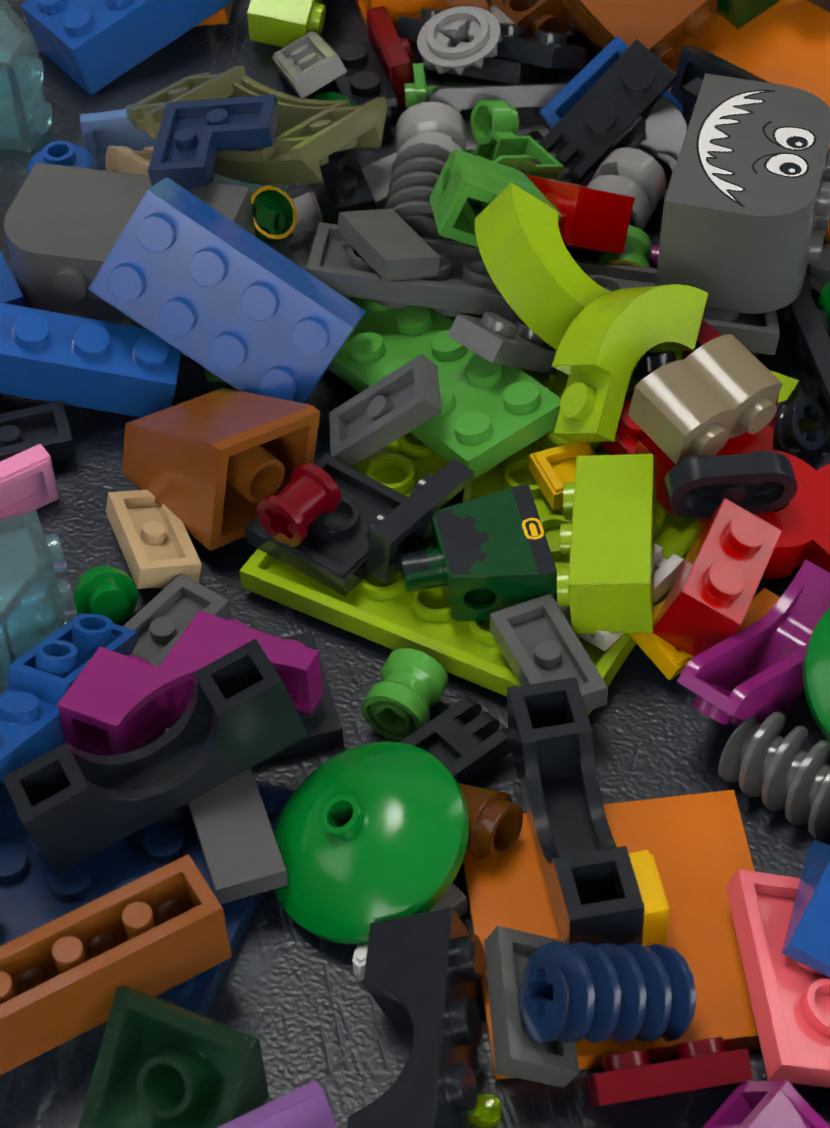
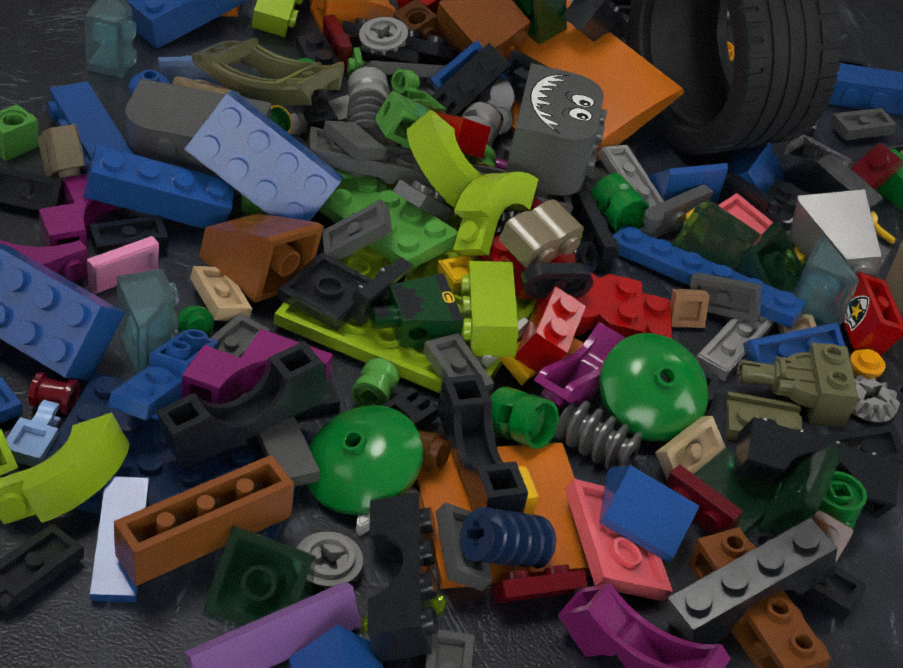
camera: 15 degrees left, 5 degrees down
(198, 129) = (239, 69): dark blue plate -> none
(299, 504) = (317, 272): dark red bush -> none
(308, 64) = (292, 41): light grey tile -> none
(312, 1007) = (334, 548): none -> light grey gear
(657, 748) = (523, 417): none -> green wheel

